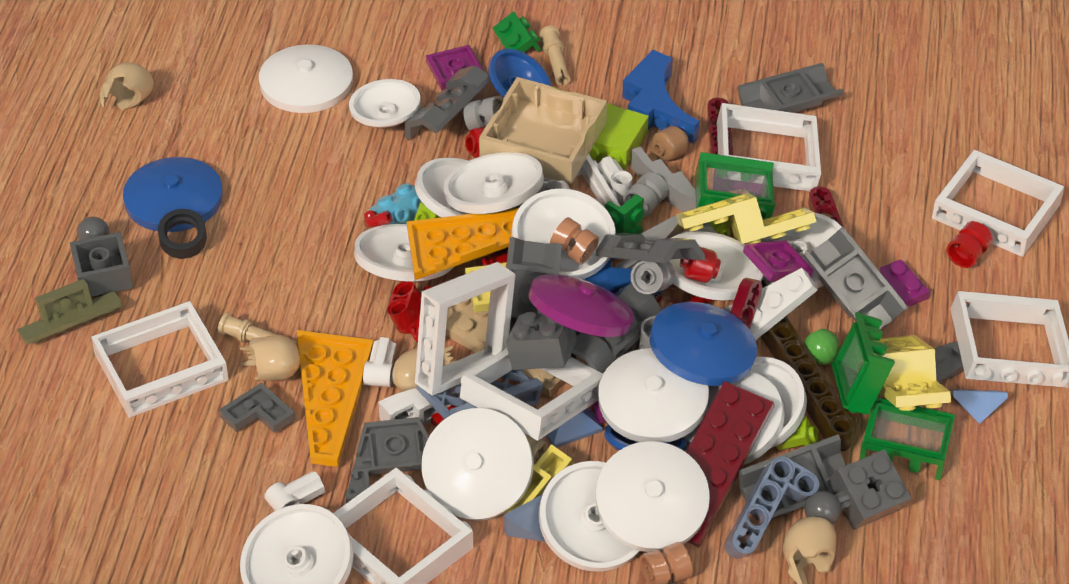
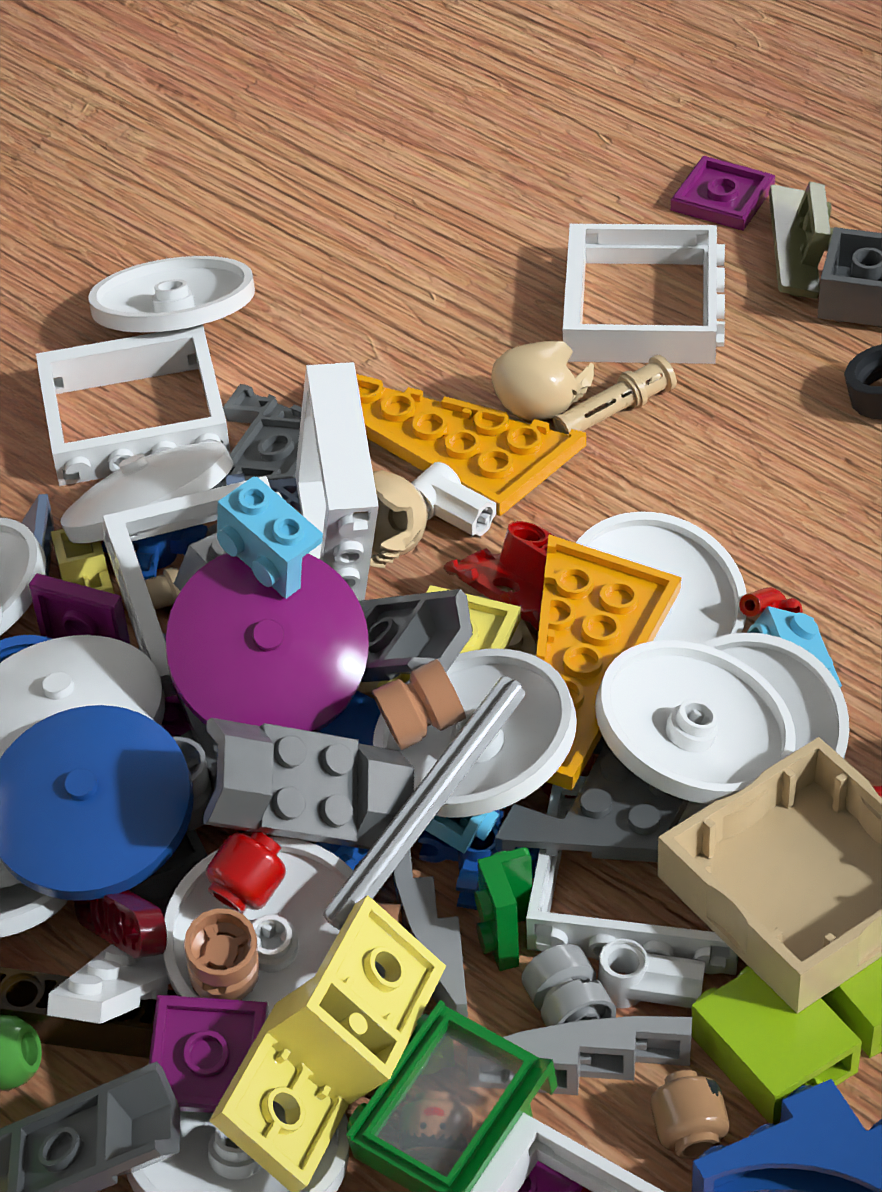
camera: 125 degrees right, 0 degrees up
(33, 369) = (722, 193): none -> magenta tile
(260, 404) = (471, 361): dark grey plate -> none
(296, 492) = (289, 336): white piece -> none
(553, 279) = (266, 534): none -> medium azure bracket
(580, 437) = (75, 610): none -> magenta tile
(615, 222) = (426, 800): none -> light grey axle
(744, 253) = (222, 955): none -> nougat wheel

